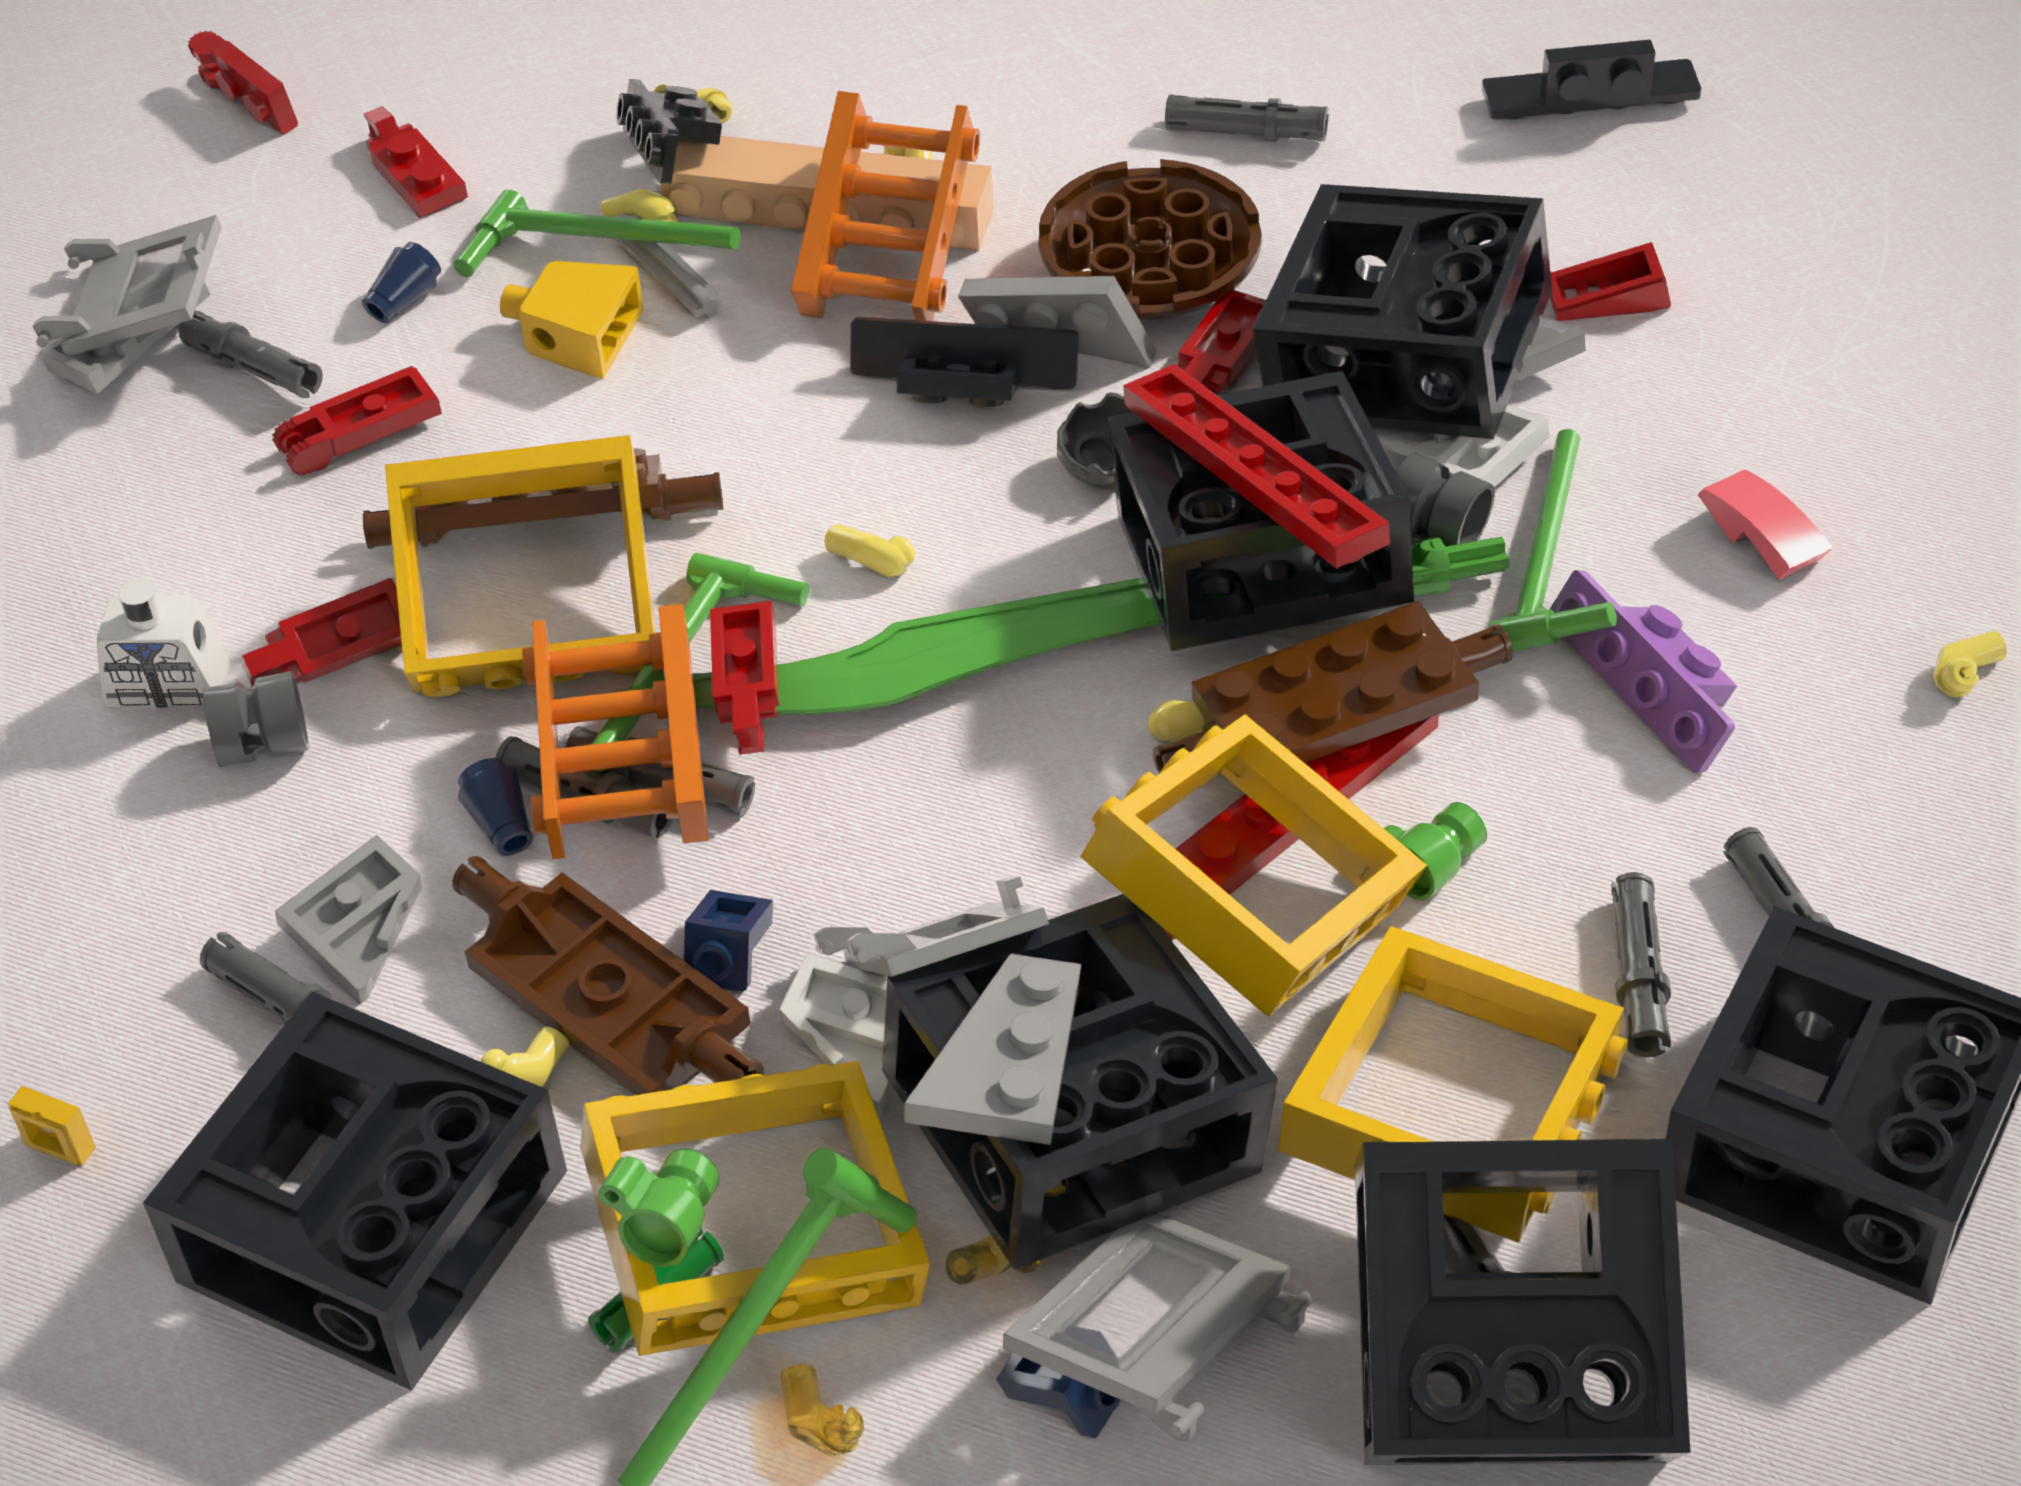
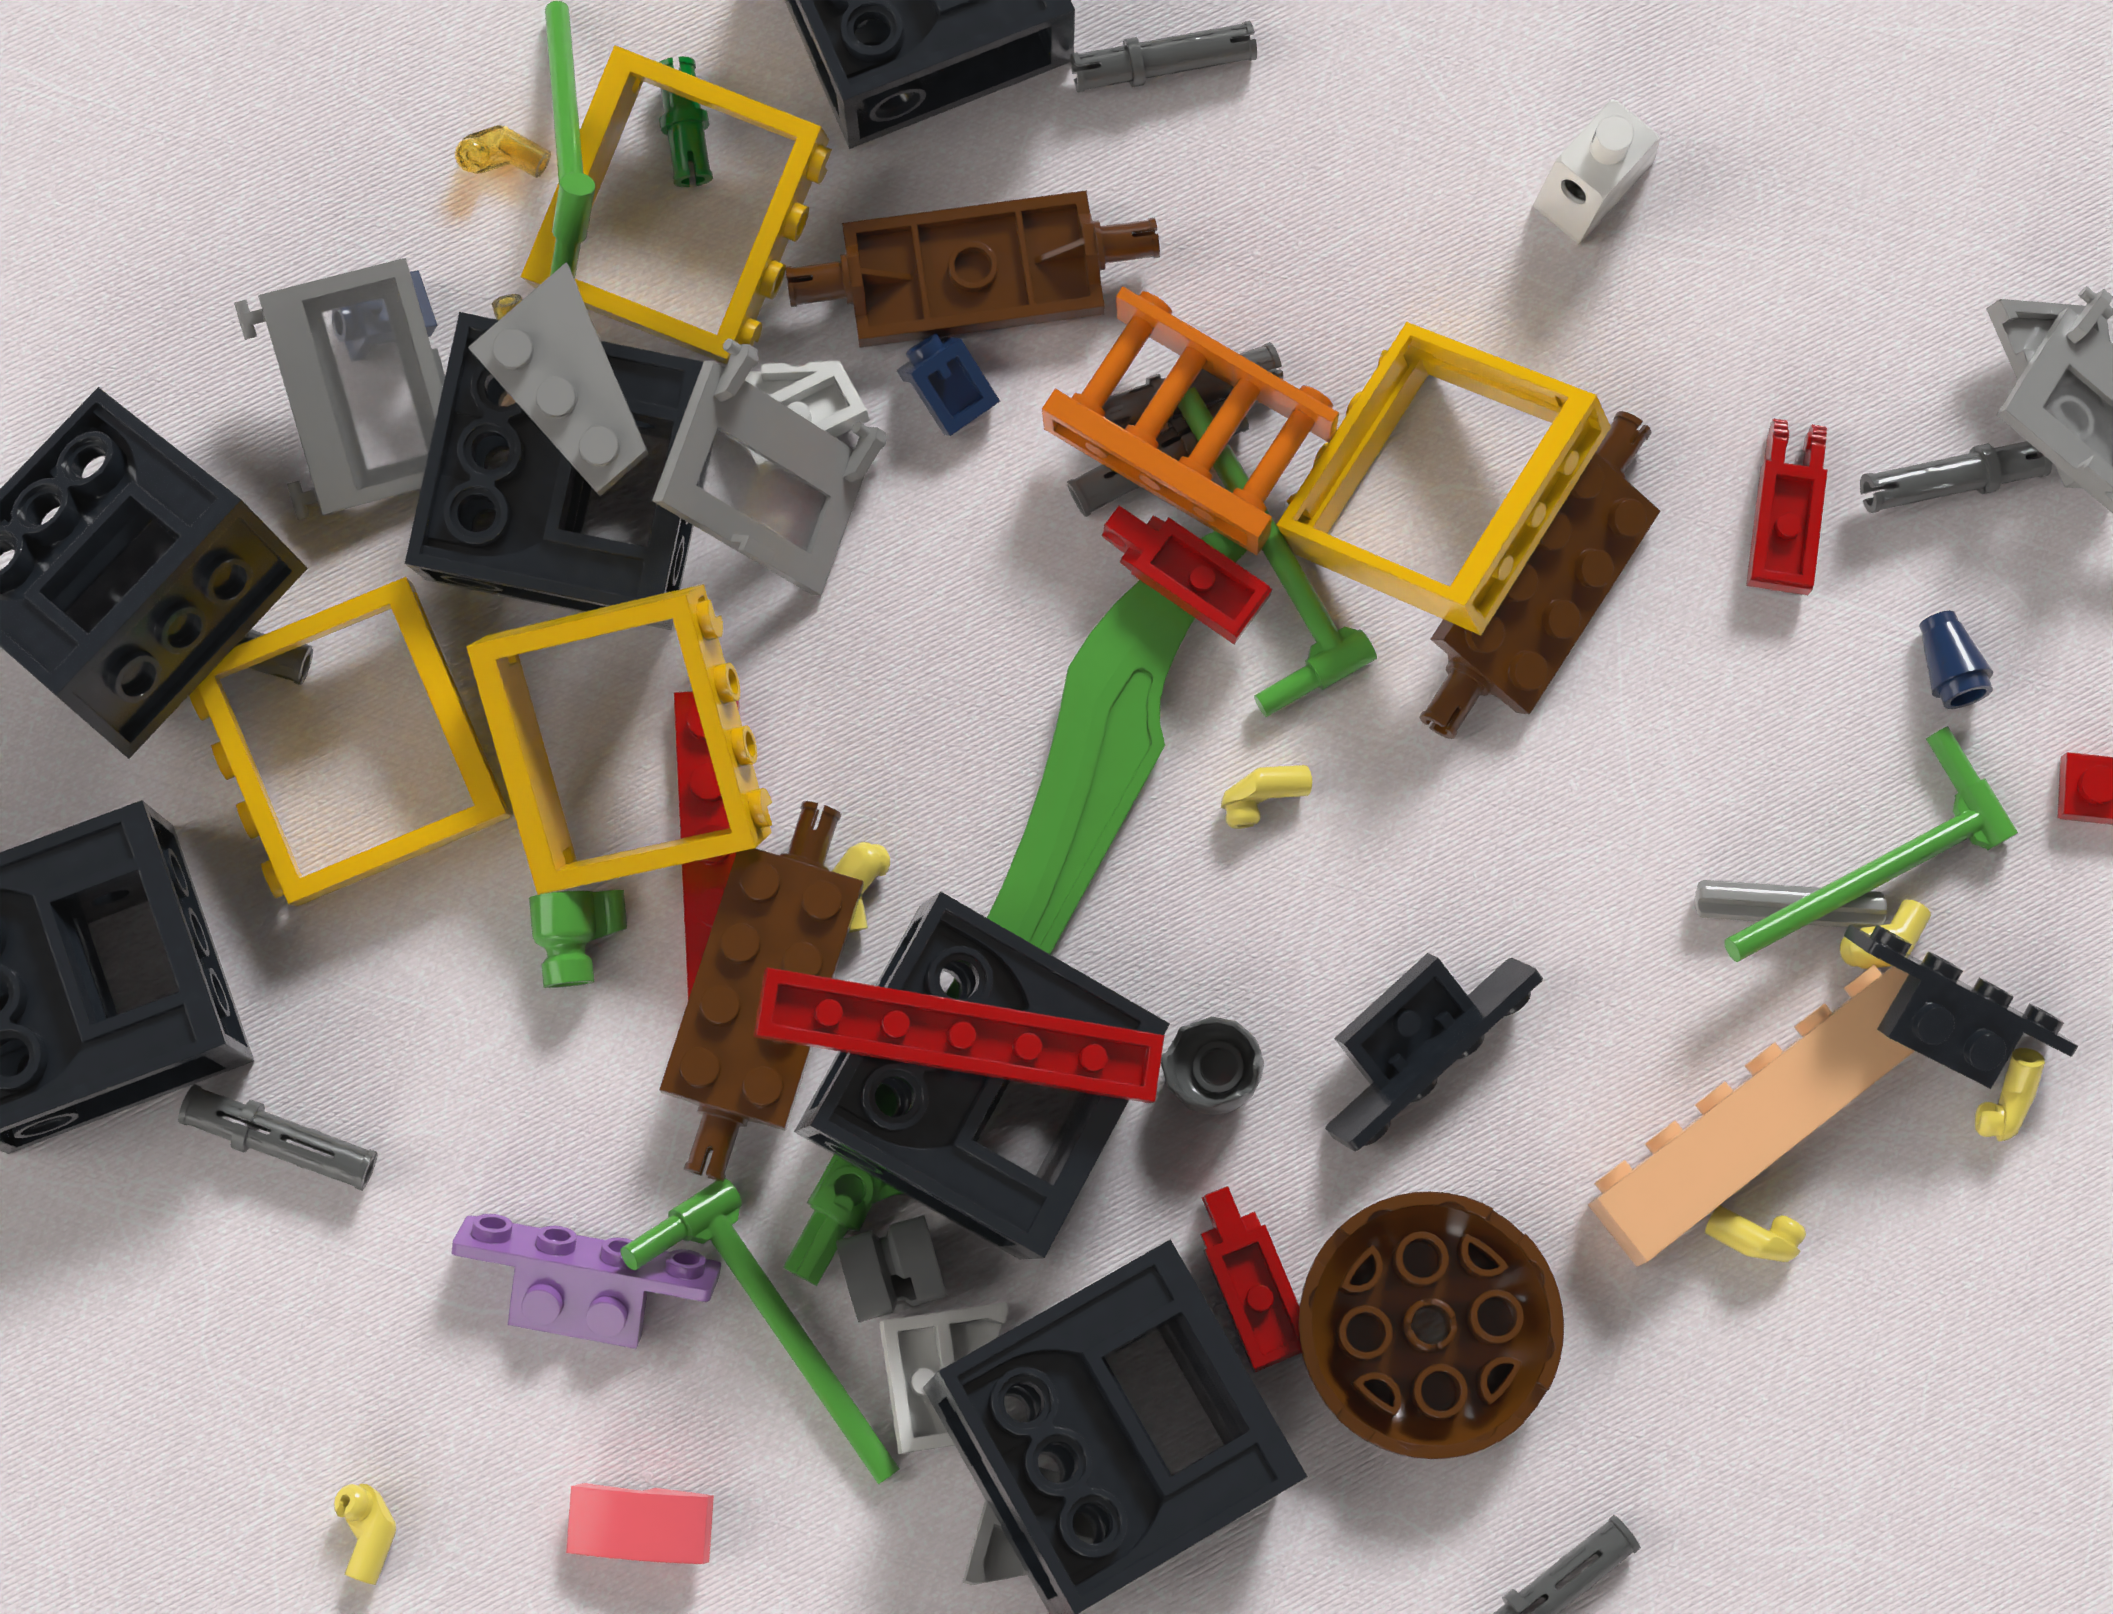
camera: 125 degrees right, 30 degrees up
(255, 719) = (1465, 193): dark grey wheel -> none
(330, 635) = (1522, 301): red hinge -> none
(354, 915) = (1199, 148): light grey wing -> none
(496, 804) = (1224, 314): dark blue cone -> none
(536, 1062) = (946, 170): light yellow arm -> none
(577, 313) = (1773, 769): yellow torso -> none
(662, 1210) = (666, 100): bright green piece -> none
(842, 179) = (1673, 1043): orange fence -> none
(1084, 304) = (1419, 1145): light grey wing -> none
(1642, 985) = (319, 968): dark grey pin -> none

